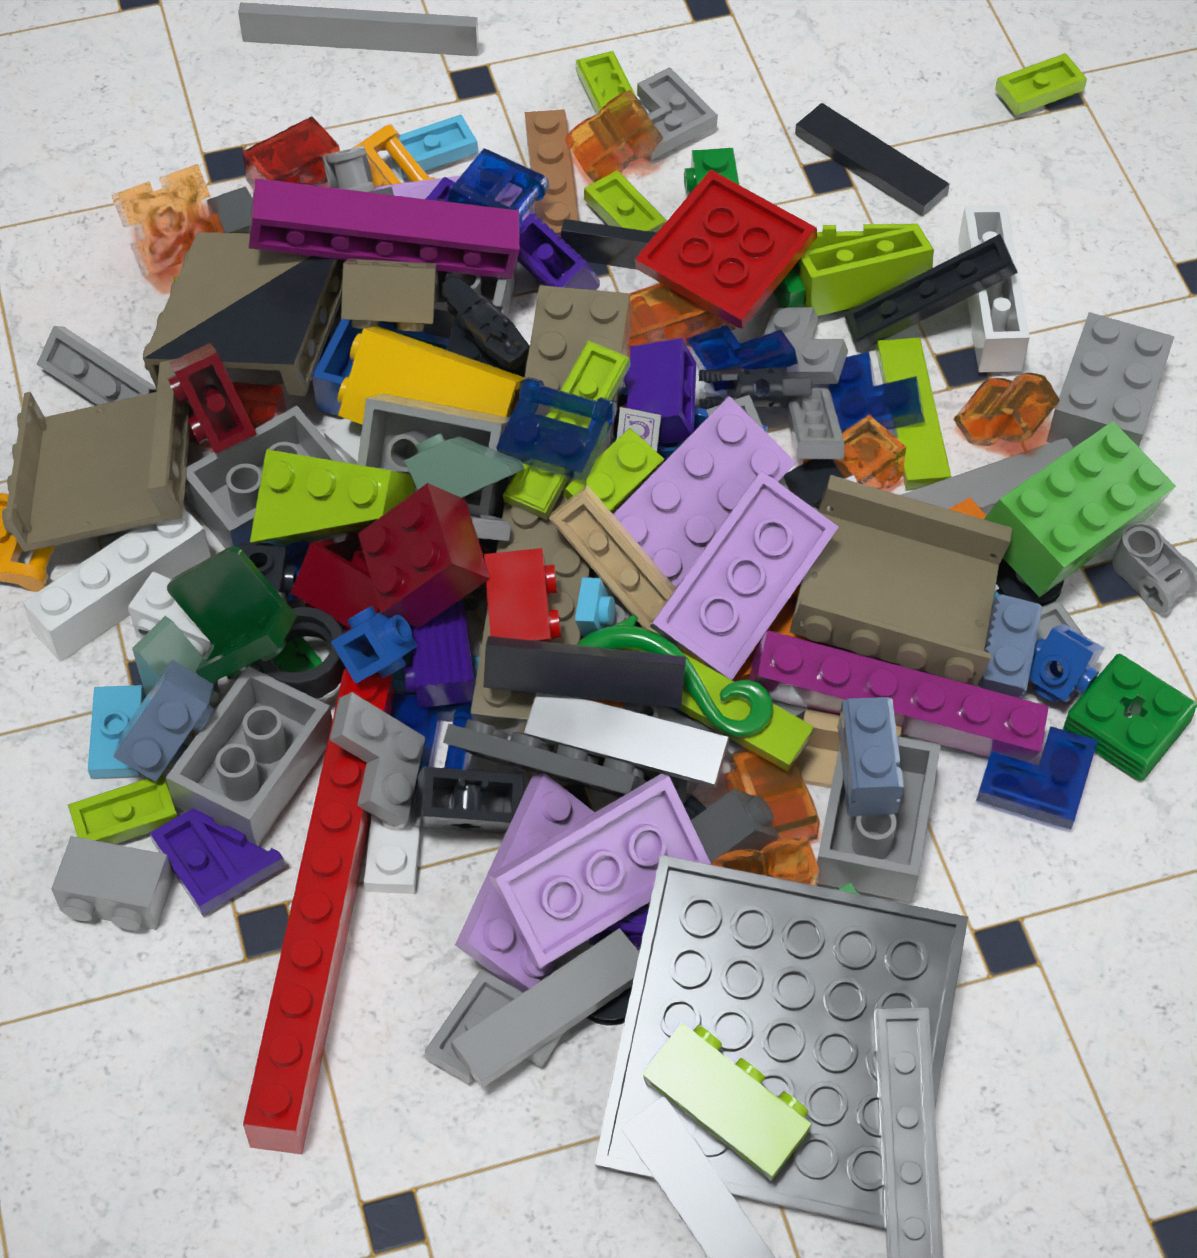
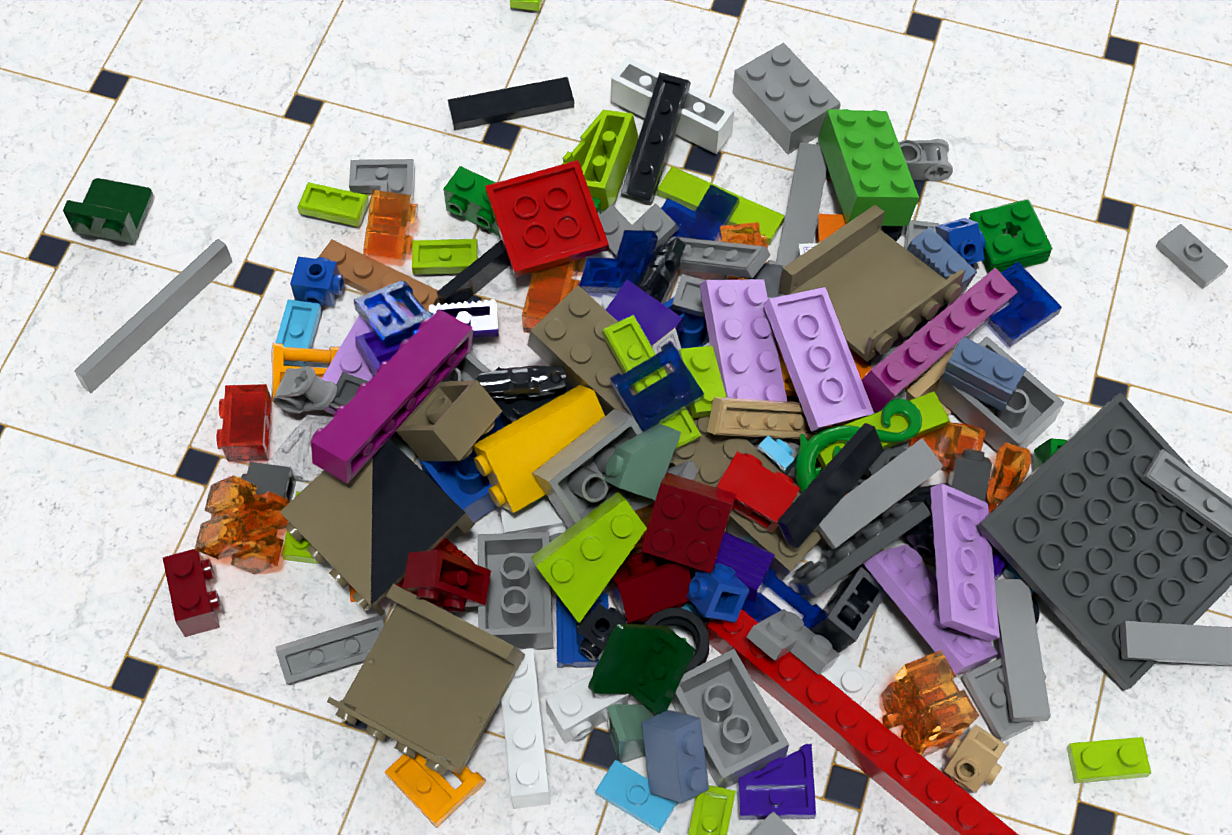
camera: 55 degrees left, 5 degrees up
(75, 231) = (191, 592): none -> dark red brick
(375, 1032) = (975, 759): none -> tan brick
(398, 938) = (927, 704): none -> clear orange brick
(487, 1193) = (1108, 760): none -> lime plate
(499, 121) = (316, 281): none -> blue brick
(728, 1099) = (1150, 588): brick -> none
(1006, 409) = (768, 155): clear orange brick -> none

